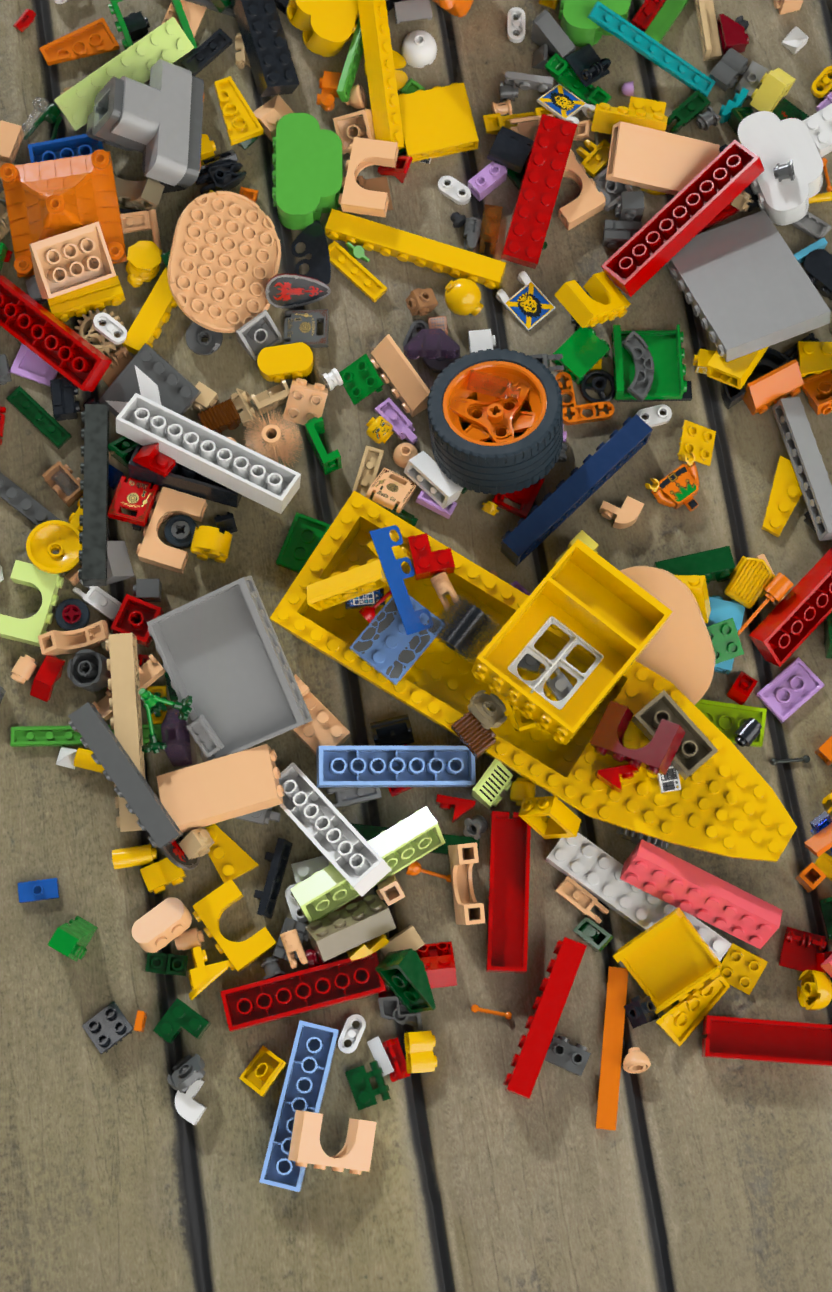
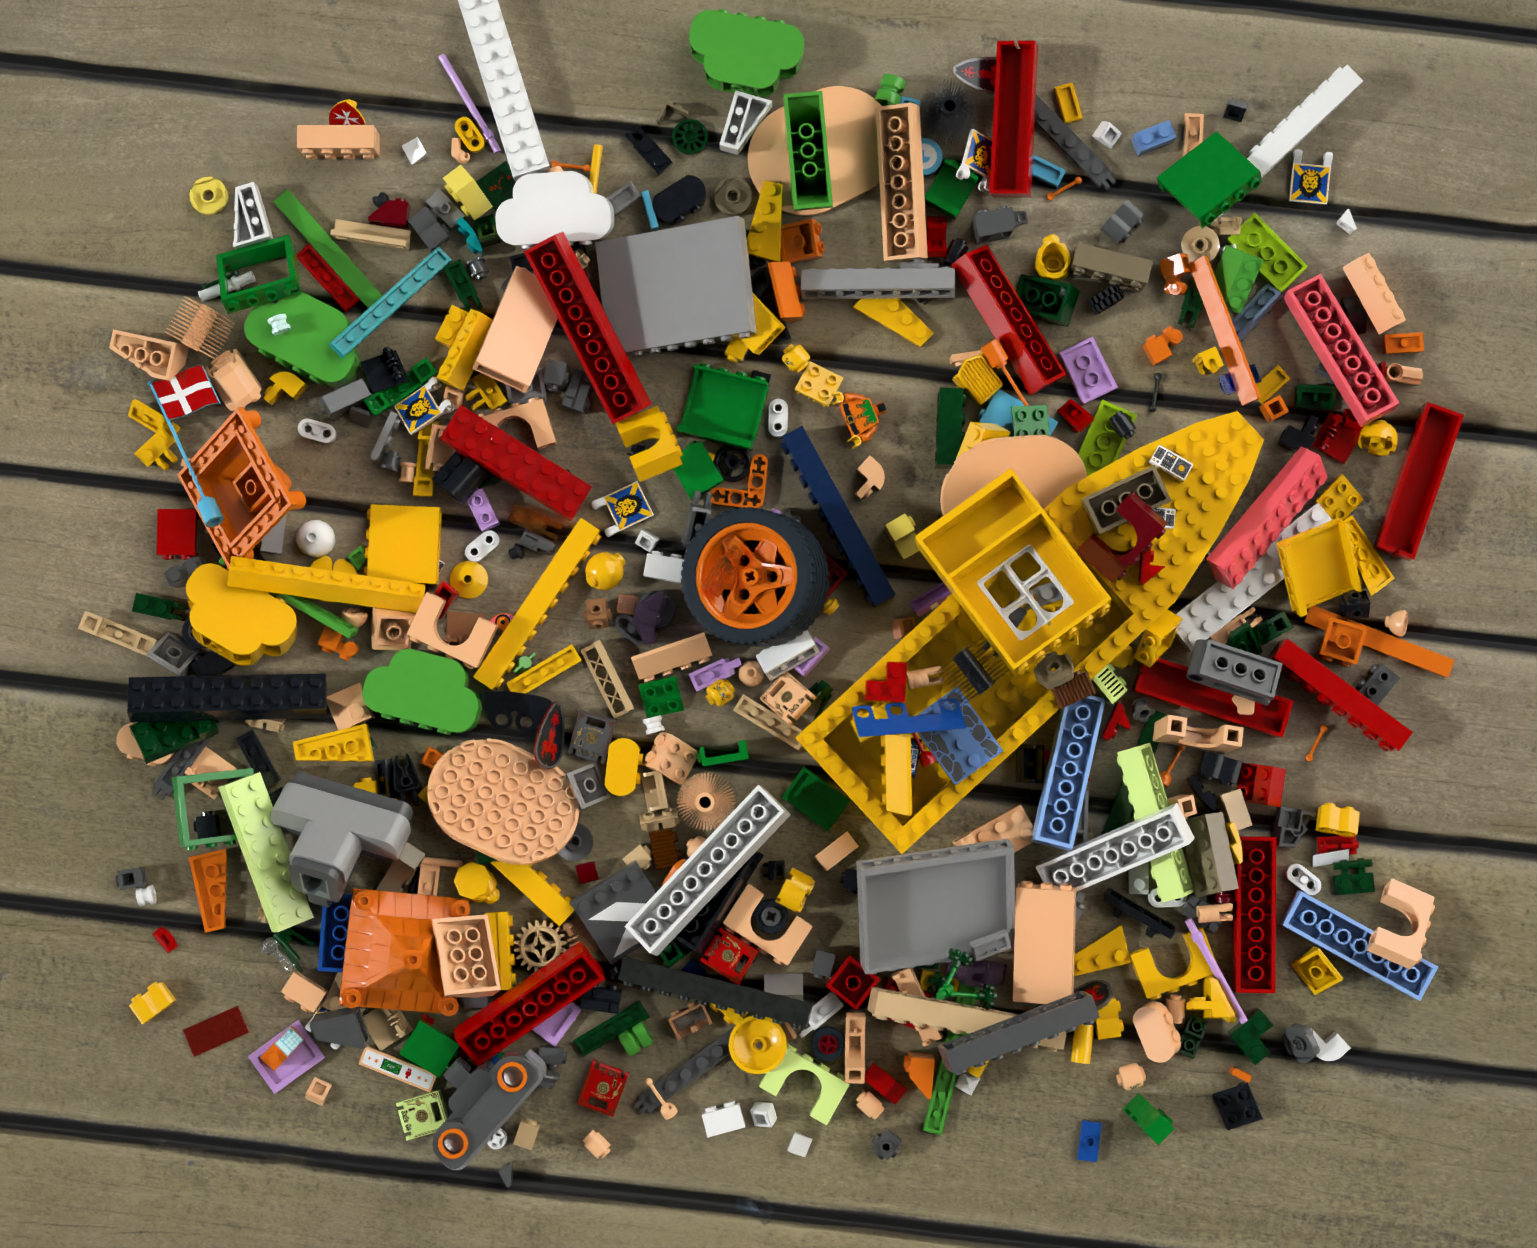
camera: 70 degrees left, 10 degrees up
(35, 440) = (635, 1039): none -> bright green wheel
(63, 702) = (920, 1070): none -> orange slope
(89, 670) = (888, 1050): dark grey brick -> none
(111, 328) = (543, 934): white plate -> none
(111, 913) = (1131, 1076): none -> light nougat head
(154, 460) = (699, 925): red slope -> none
(179, 357) = (587, 872): none -> dark red slope
(196, 843) = (1088, 978): tan brick -> none
(262, 577) = (836, 851): none -> light nougat slope
(265, 938) = (1198, 938): none -> lavender bar
(271, 968) = (1223, 938): dark grey brick -> none
(367, 332) = (611, 671): none -> tan fence
(391, 221) = (502, 620): none -> tile
(406, 913) = (1207, 798): none -> black slope
(407, 979) = (1272, 814): dark green slope -> none
(417, 194) = (476, 586): none -> yellow dish
(439, 920) = (1220, 768): none -> black brick
(503, 330) = (647, 540): none -> white slope
(512, 923) = (1244, 705): none -> light nougat sticker
(549, 873) = (1236, 671): none -> dark grey hinge
(564, 907) = (1244, 639): none -> dark green plate
(600, 1008) = (1342, 642): none -> orange plate
(628, 89) = (421, 337): lavender hinge -> none
(643, 365) = (728, 413): dark grey tile -> none
(714, 415) = (795, 358): none -> yellow head
(725, 773) = (1171, 463): none -> tile
(784, 171) = (572, 212): dark grey brick -> none
(789, 904) = (1293, 438): none -> black brick
(805, 76) = (457, 153): none -> light nougat arm

